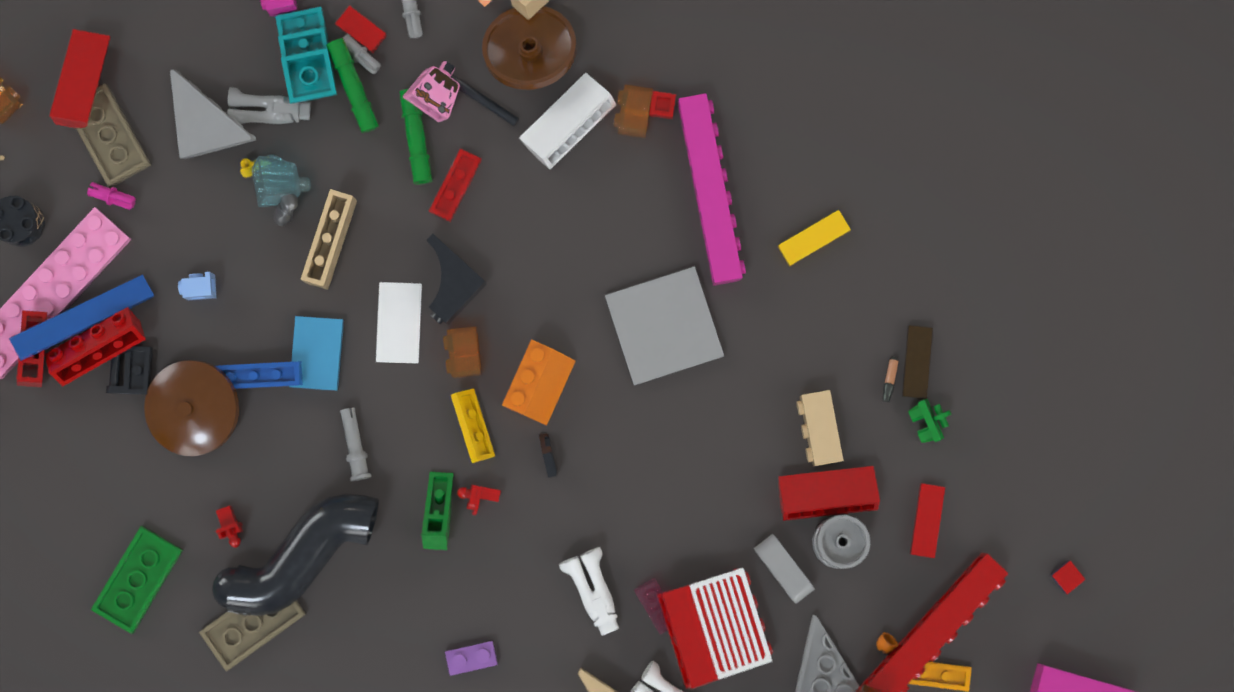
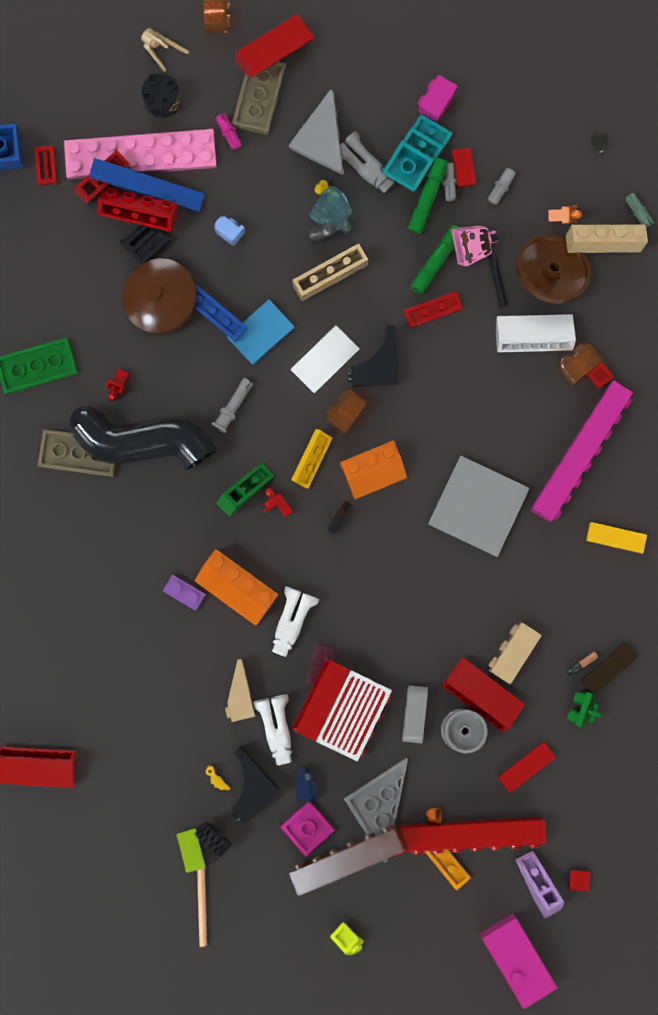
camera: 40 degrees right, 0 degrees up
(514, 608) = (236, 587): none -> orange slope
(1037, 614) = (540, 885): none -> lavender slope

